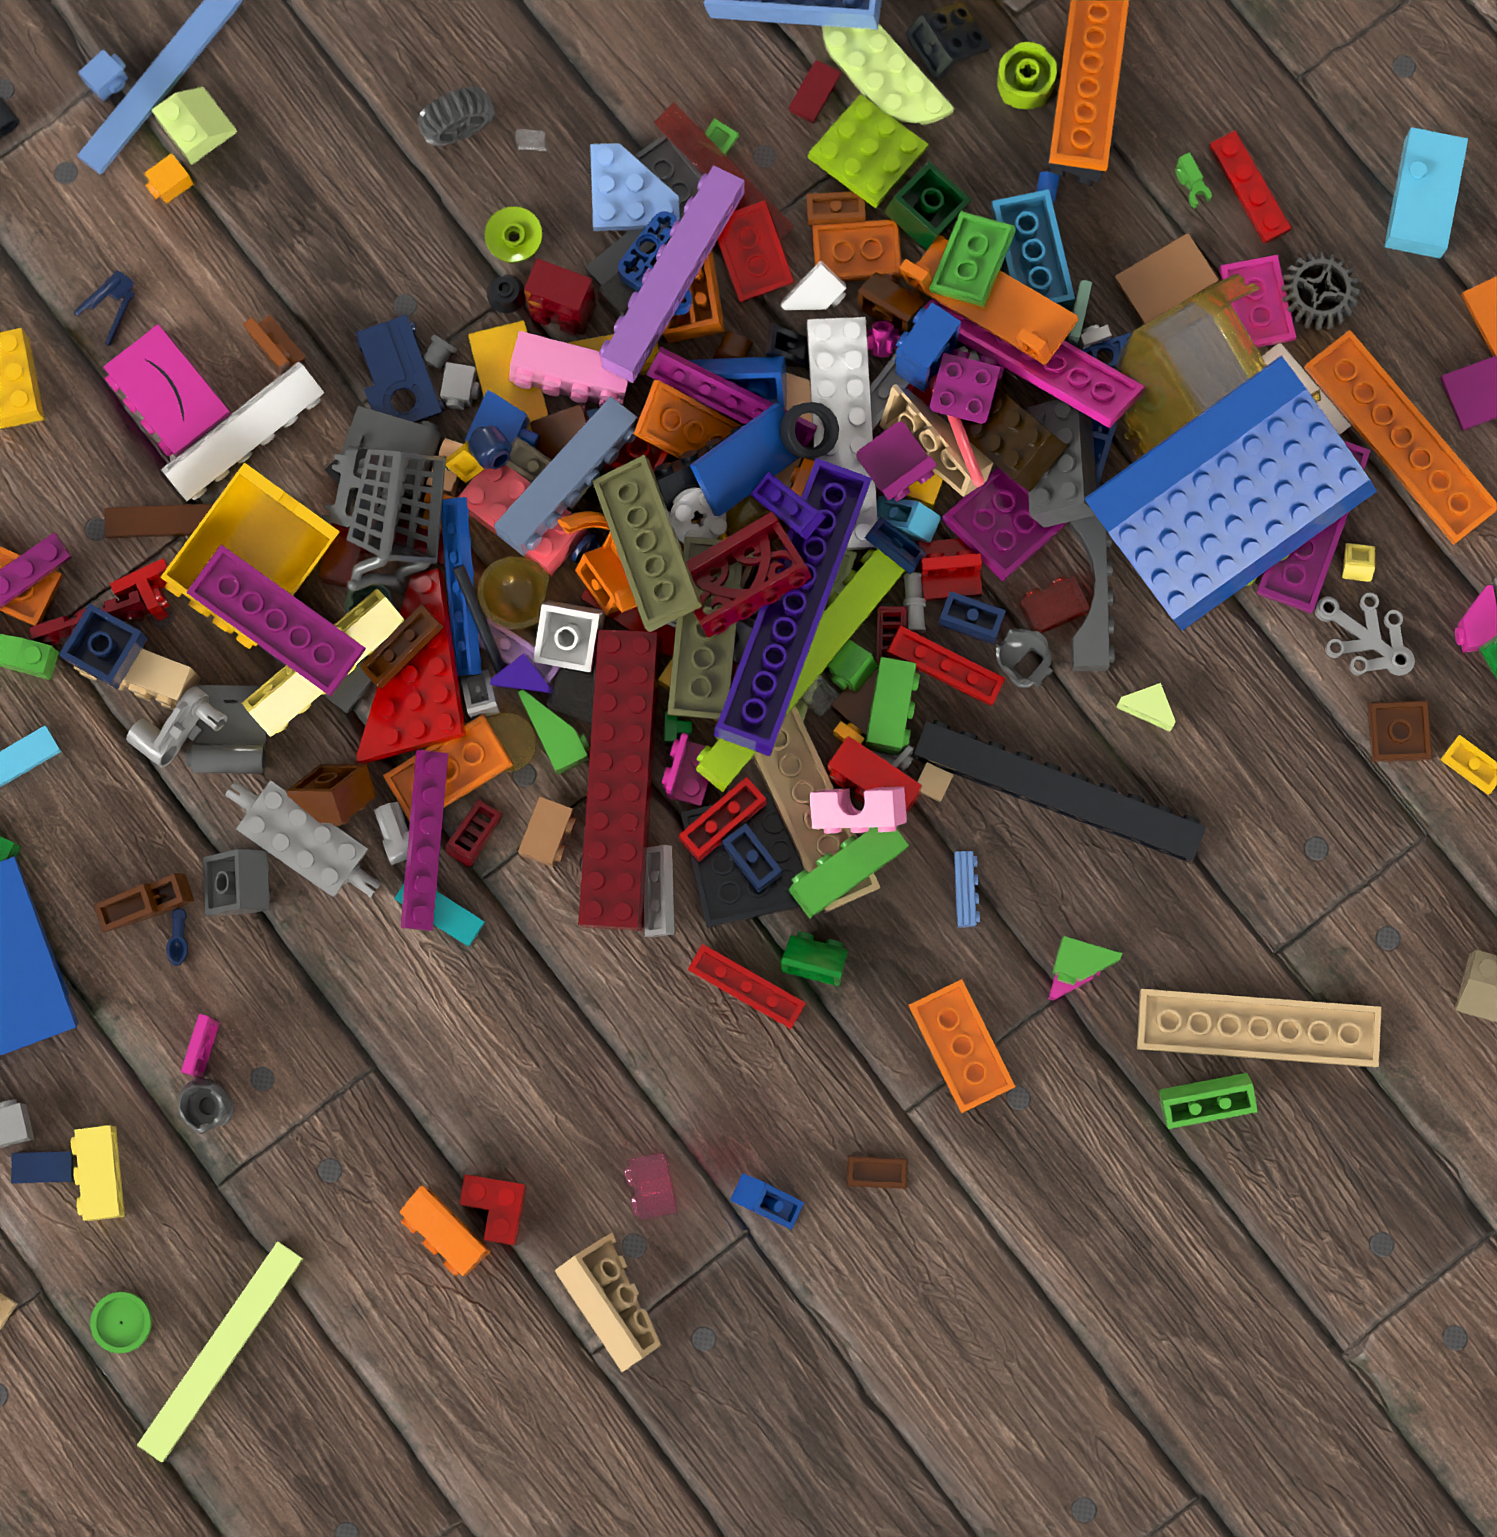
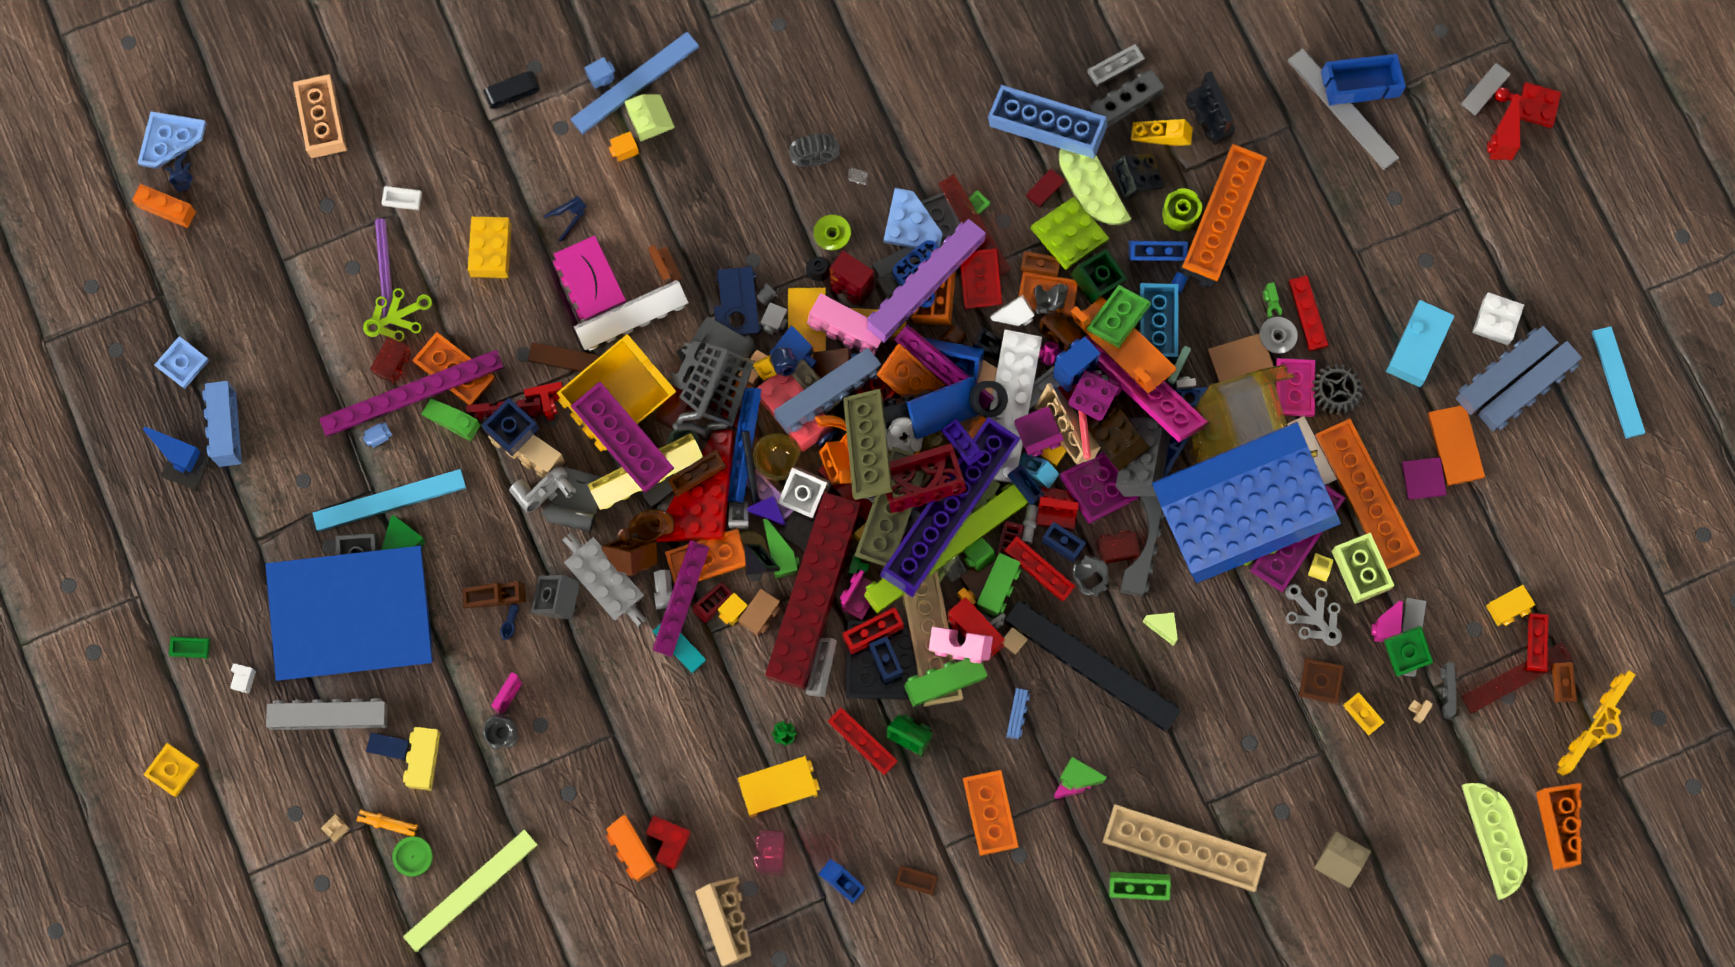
camera: 10 degrees right, 5 degrees down
(60, 1281) = (379, 820): none -> light orange pin
(348, 743) = (648, 525): none -> reddish brown piece
(505, 838) = (732, 609): none -> yellow brick
(526, 755) = (758, 560): none -> black slope
(627, 1003) = (784, 733): none -> green gear
(639, 1083) = (778, 785): none -> yellow panel
(864, 258) = (1050, 300): none -> dark grey helmet
(1005, 145) = (1157, 250): none -> blue brick
(1220, 219) = (1281, 327): none -> light grey dish
(1422, 549) = (1362, 568): none -> yellowish green brick

